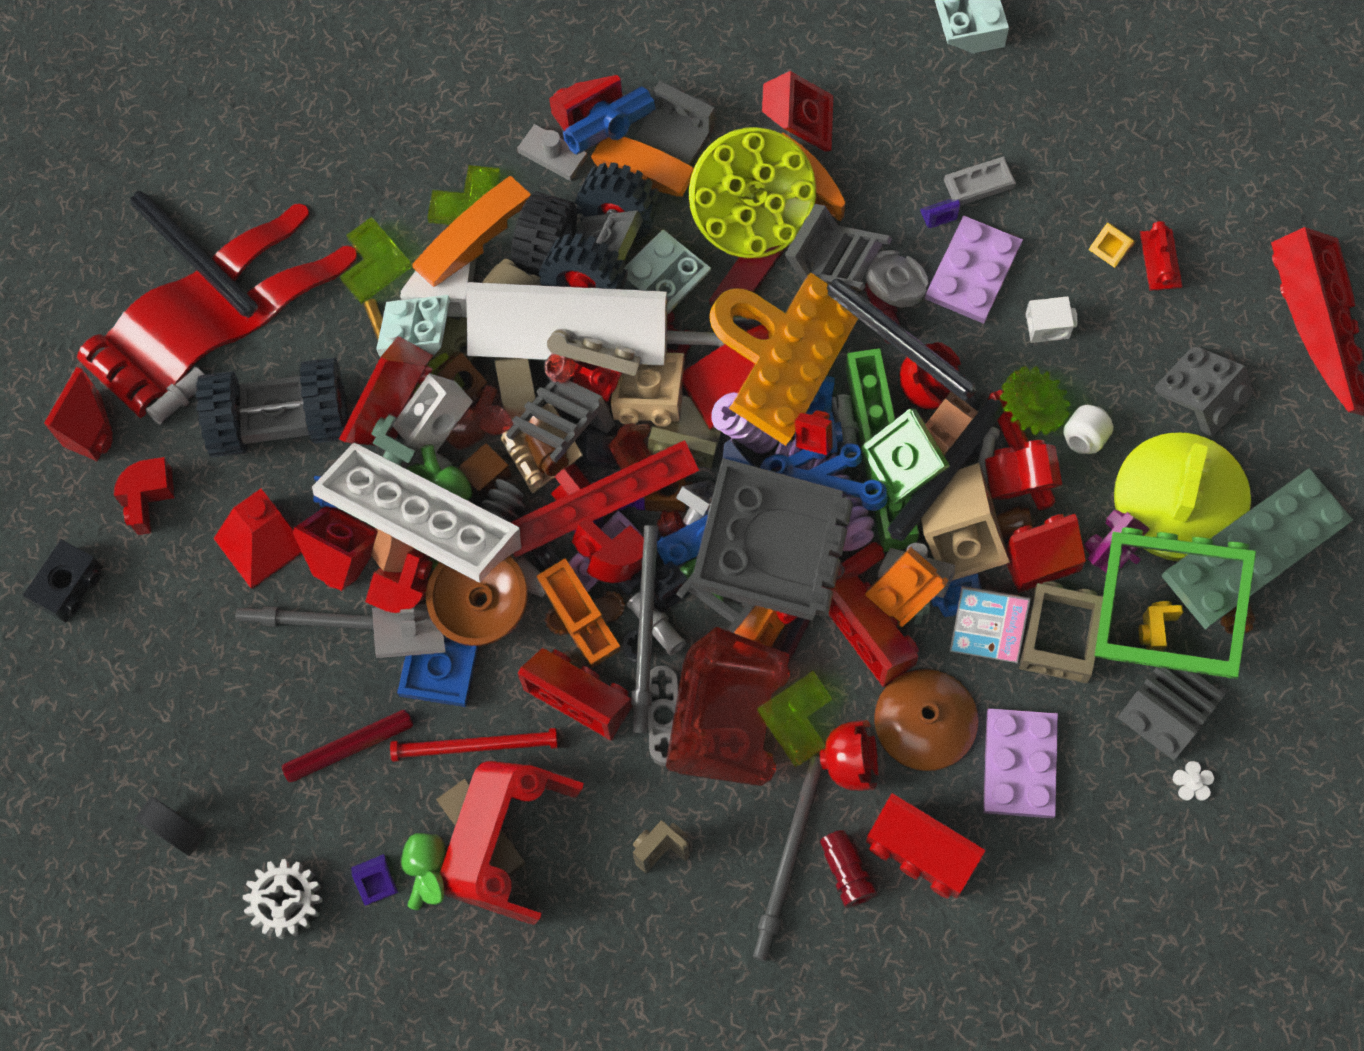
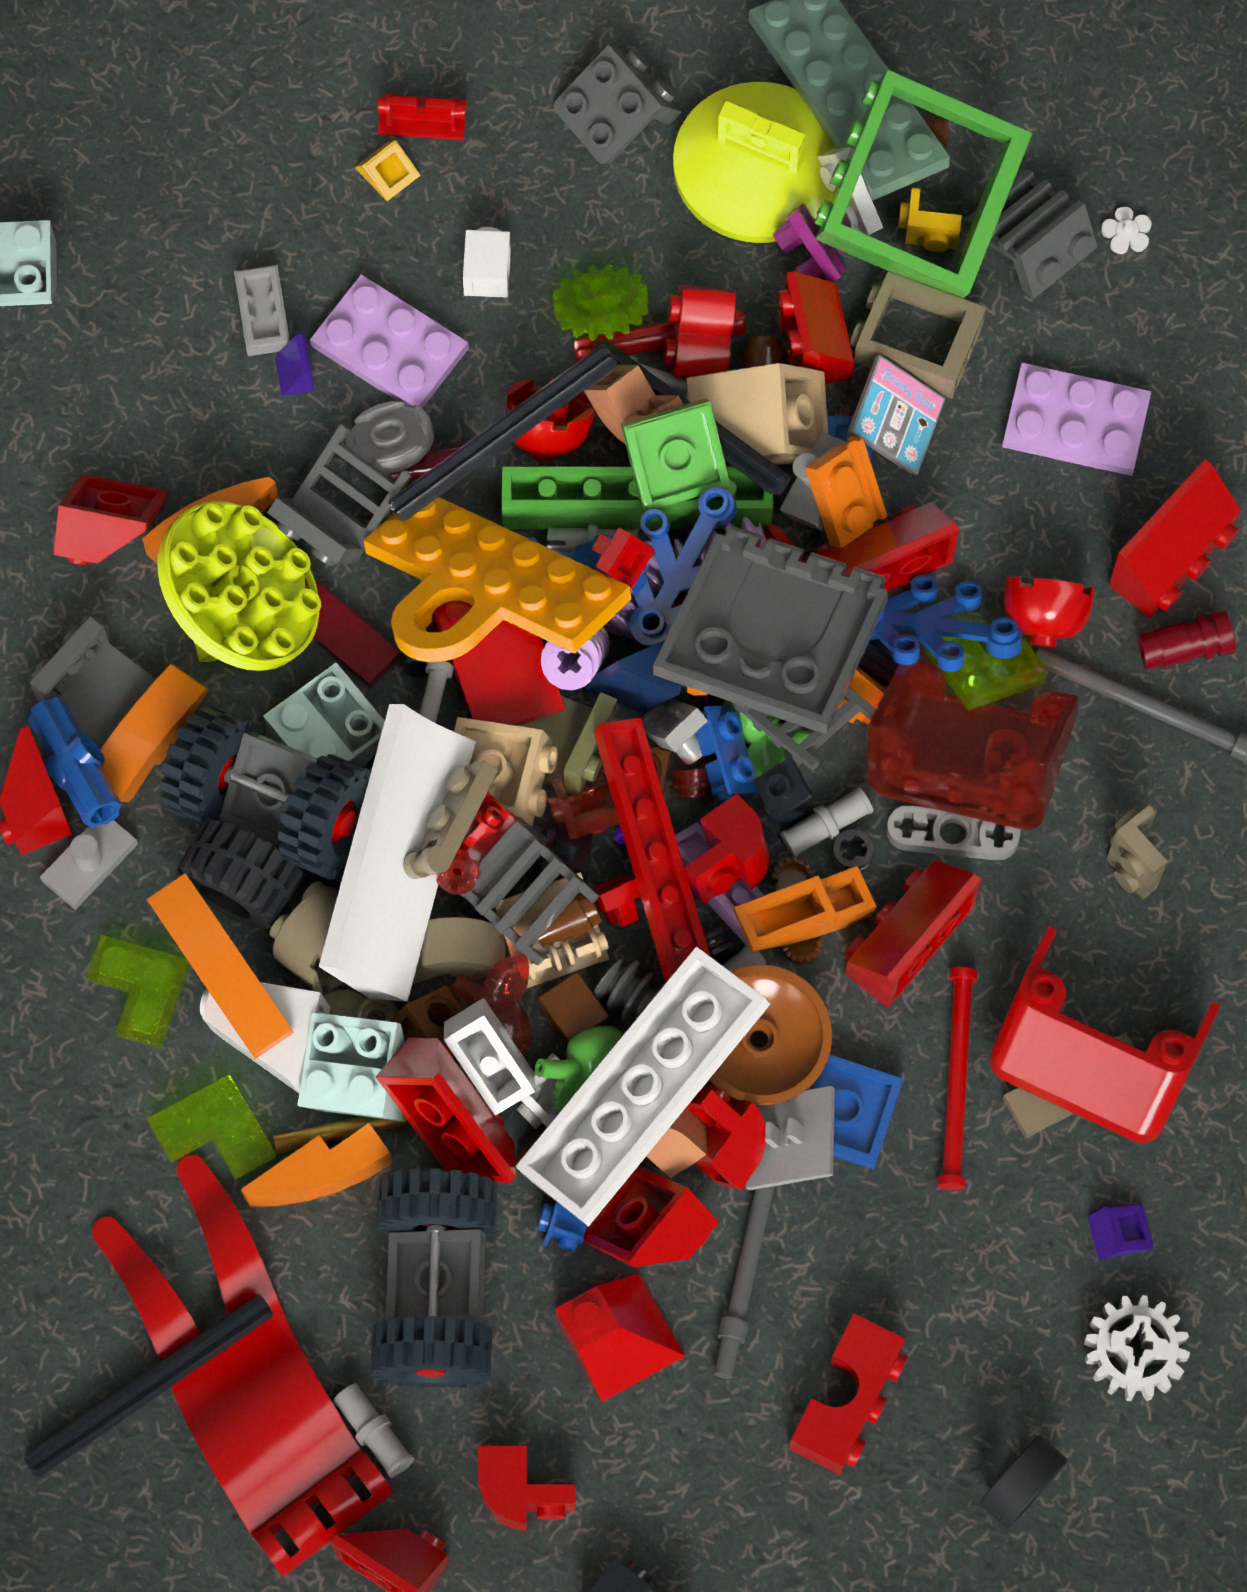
camera: 85 degrees left, 0 degrees up
(254, 710) = (832, 1433): none -> red arch
(347, 745) = (934, 1245): dark red axle -> none
(351, 329) = (319, 1171): none -> orange slope
(393, 449) = (521, 1120): sand green bracket -> none
(424, 858) = (1110, 1153): bright green piece -> none
(641, 697) = (928, 847): dark grey bar -> none
(823, 673) = (1001, 637): none -> blue plant
(921, 741) = (1000, 542): dark orange dish -> none
(1088, 429) = (651, 249): white head -> none
(1153, 567) = (860, 210): none -> white plate

